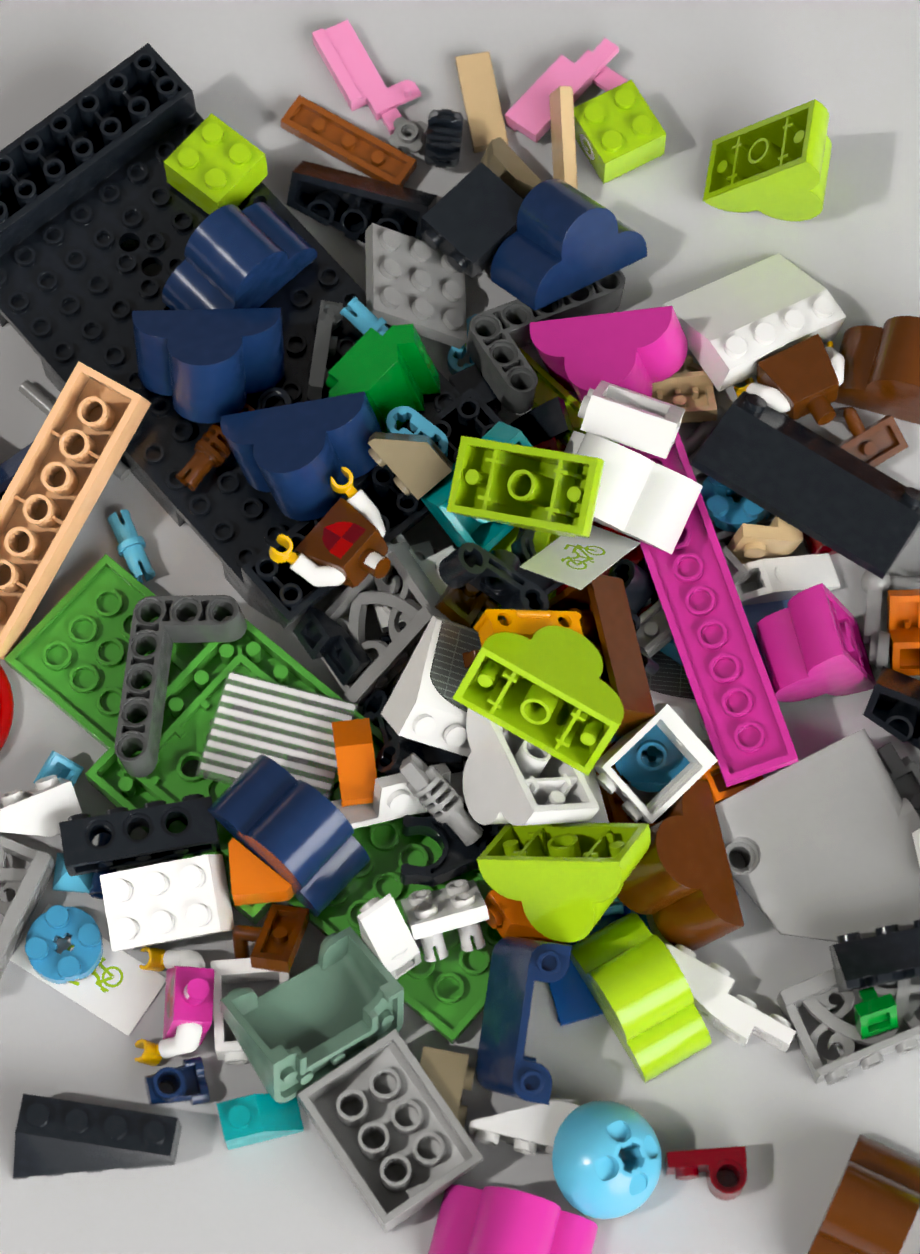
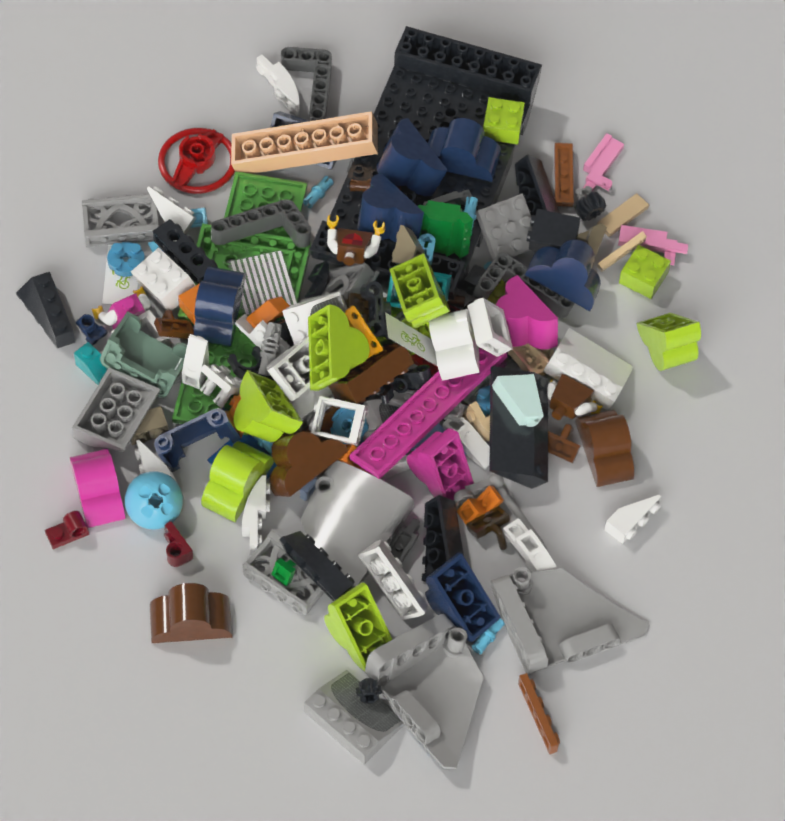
camera: 55 degrees right, 10 degrees down
(783, 451) = (520, 397): none -> light aqua slope

